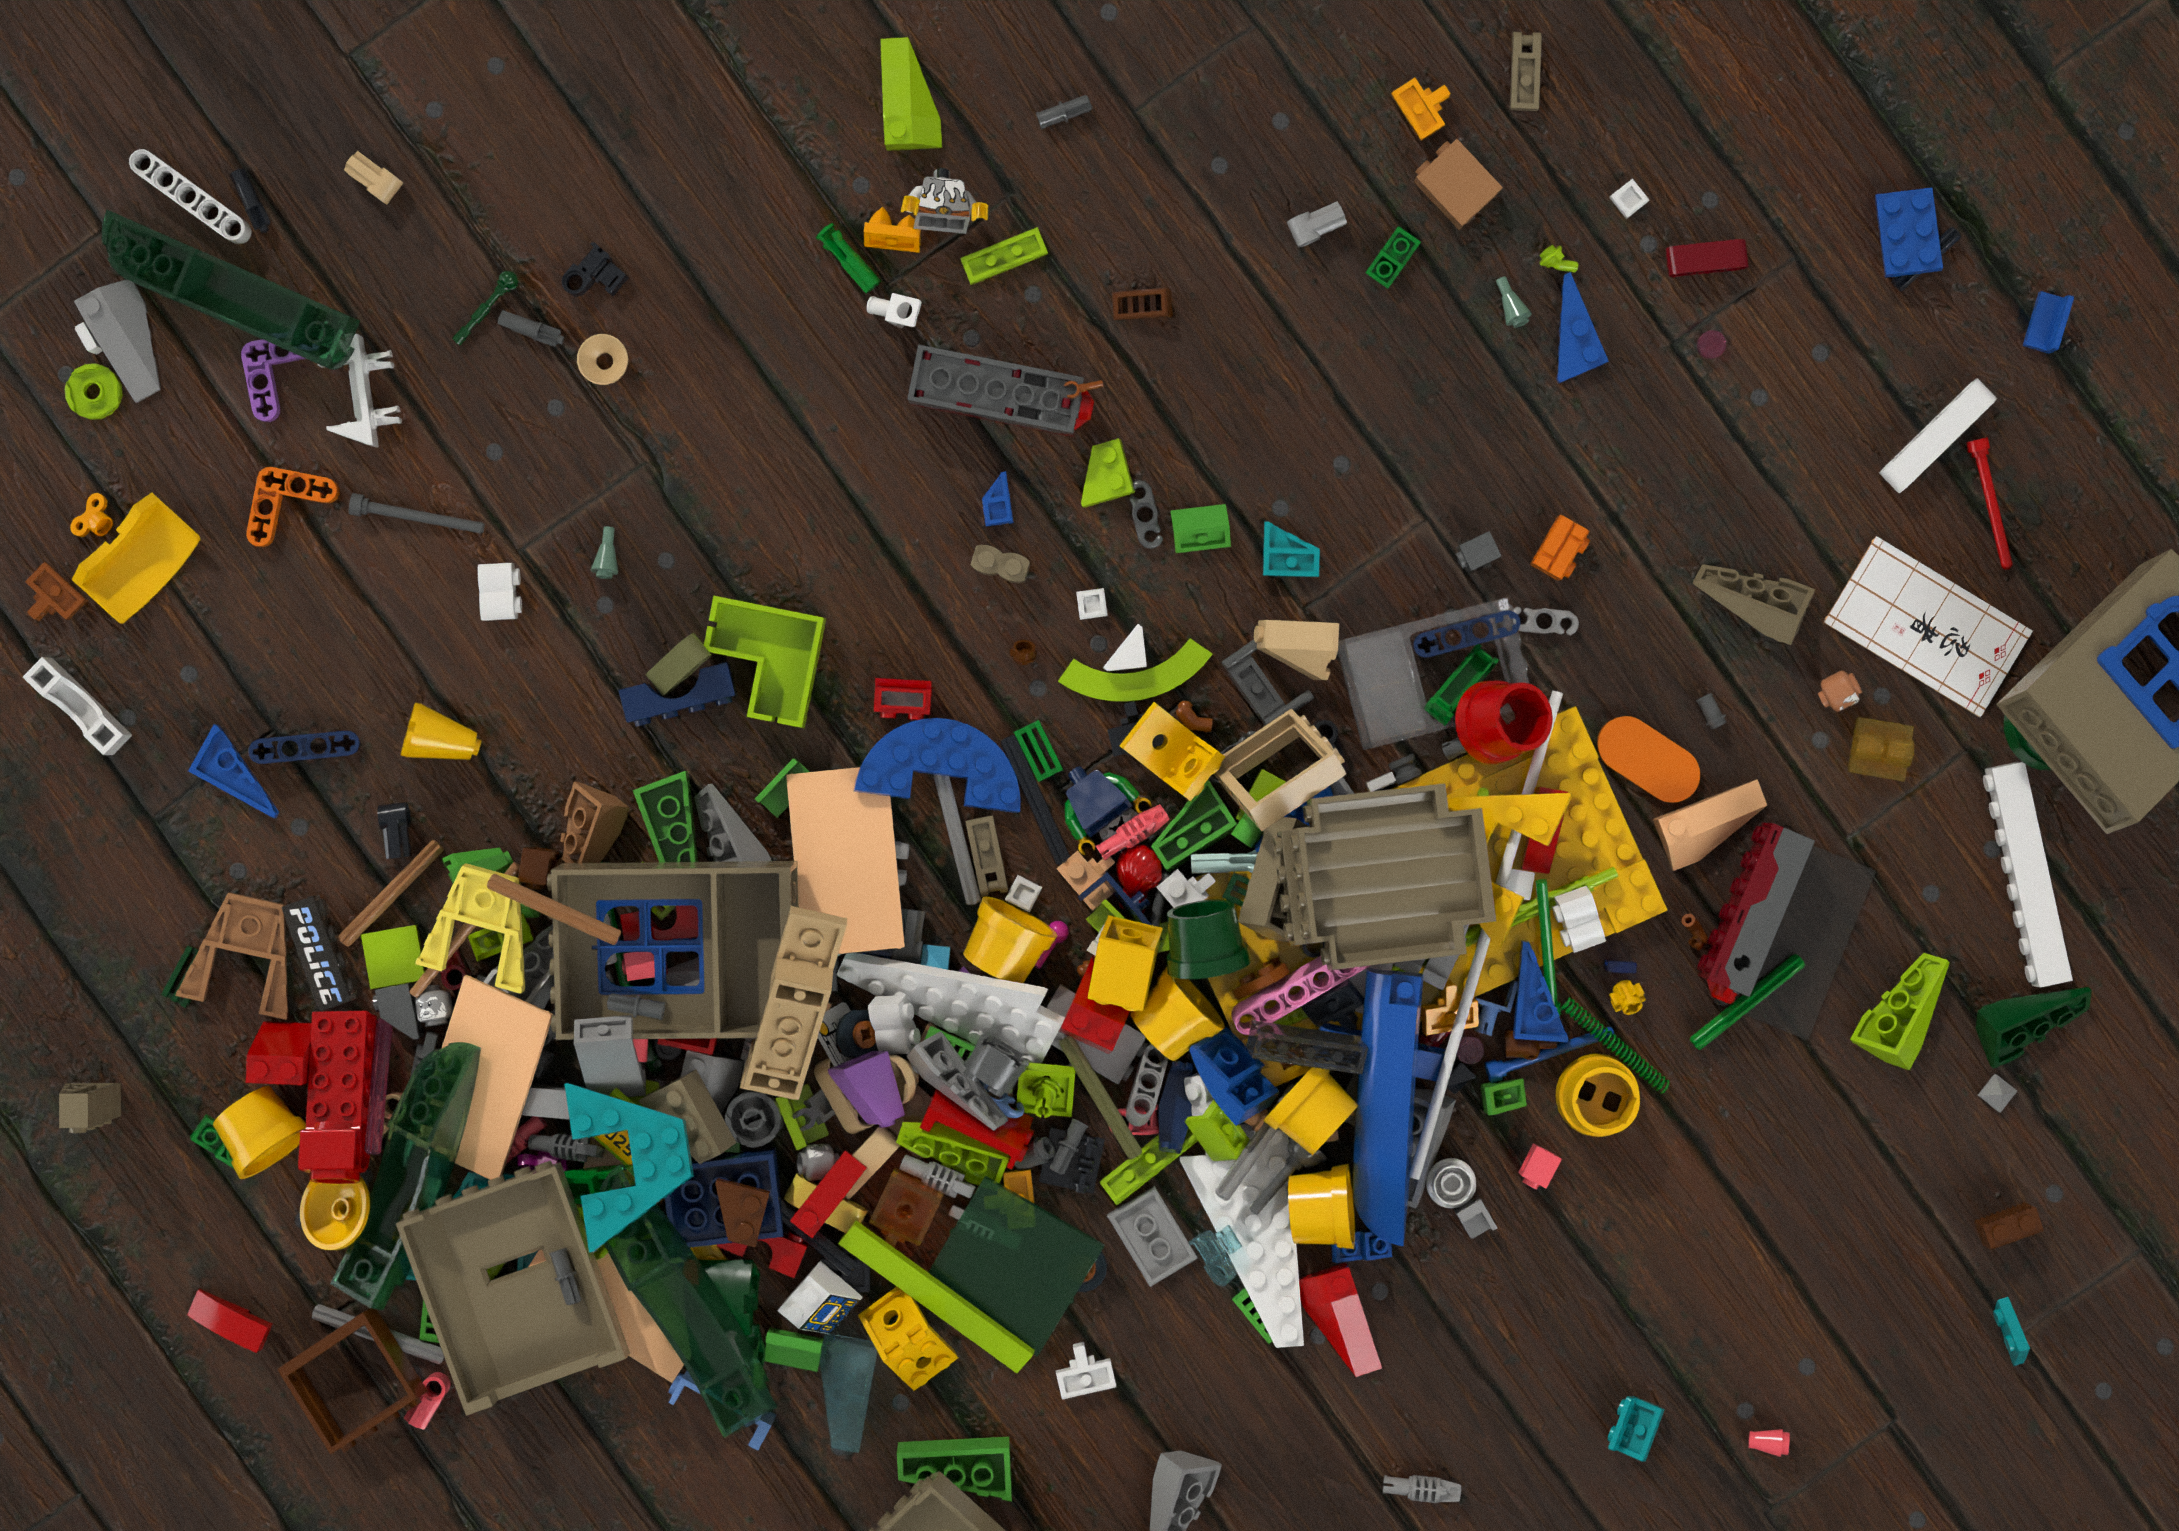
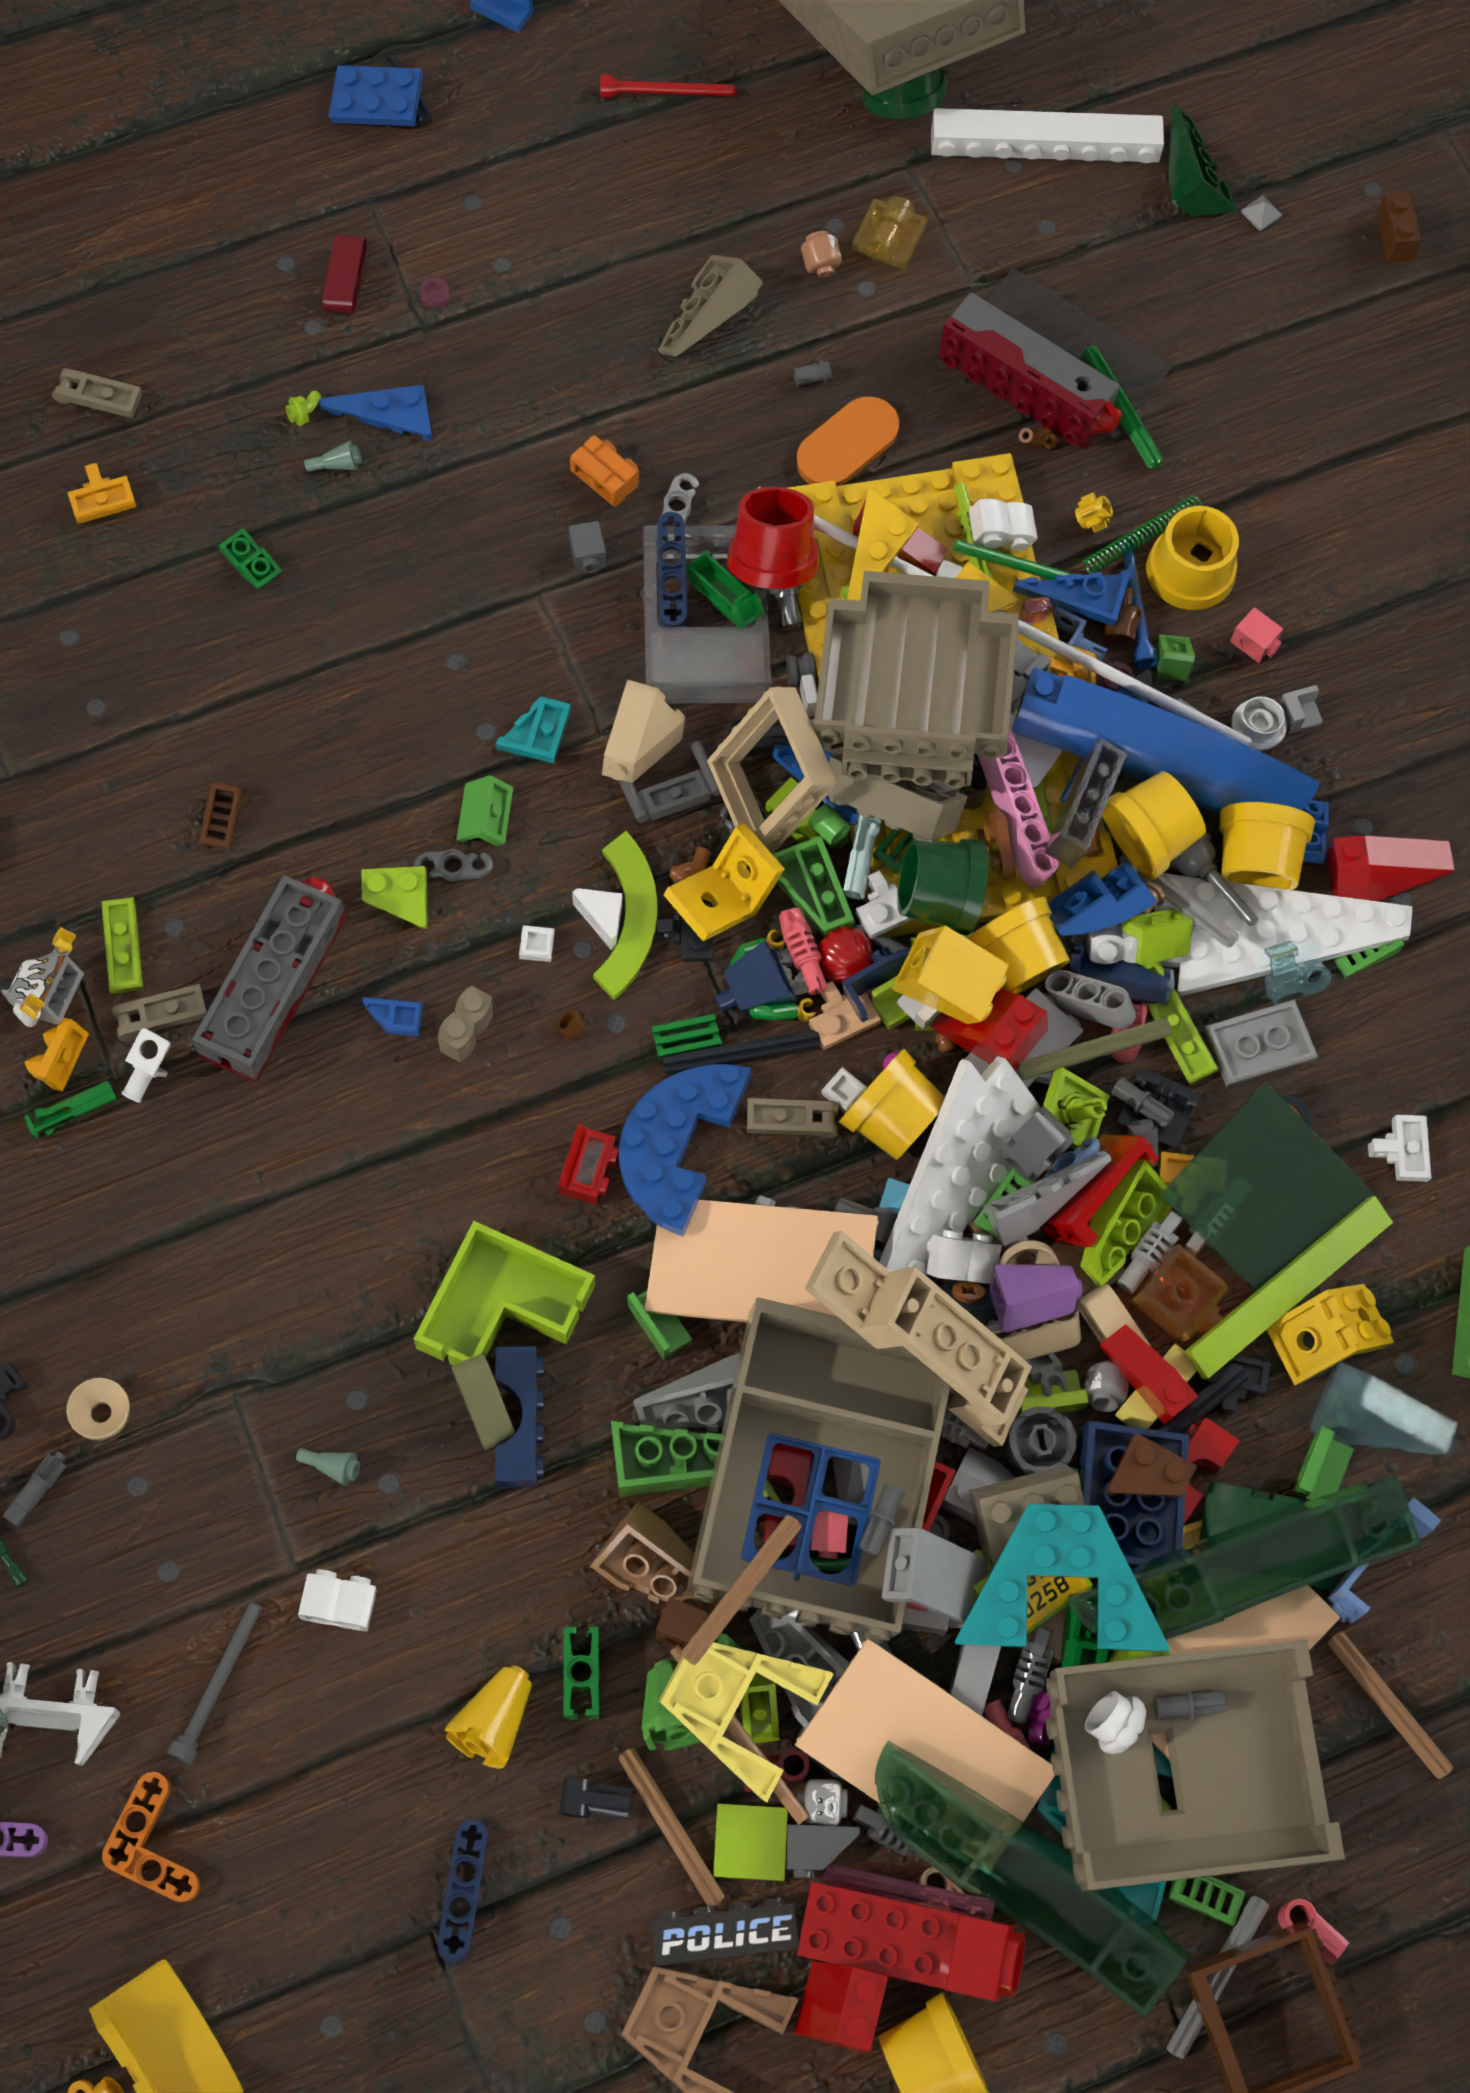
camera: 85 degrees left, 20 degrees down
(225, 768) = (462, 2003): blue wing -> none
(334, 1213) = (1050, 2009): yellow dish -> none
(477, 790) = (591, 1684): none -> green piece
(535, 1220) = (1116, 1722): none -> white piece
(616, 1433) = (1390, 1705): none -> medium nougat axle
(820, 1301) = (1270, 1419): white slope -> none
(951, 307) = (160, 1011): none -> dark tan plate
(957, 839) = (765, 1146): light grey axle -> none
(1083, 387) = (294, 876): dark orange hand -> none
(1310, 226) = (191, 627): light grey piece -> none
(1336, 1005) = (1045, 772): black hinge -> none
(1457, 183) = (192, 480): medium nougat brick -> none
(1503, 965) = (1035, 610): none -> tile
(1620, 966) = (1059, 512): clear blue tile -> none
(1629, 198) = (261, 331): white tile -> none
(1702, 826) = (928, 408): light nougat wedge -> none
(1901, 1020) = (1168, 275): lime wedge -> none
(1928, 626) = (775, 171): white piece -> none
(1938, 435) = (586, 116): white beam -> none

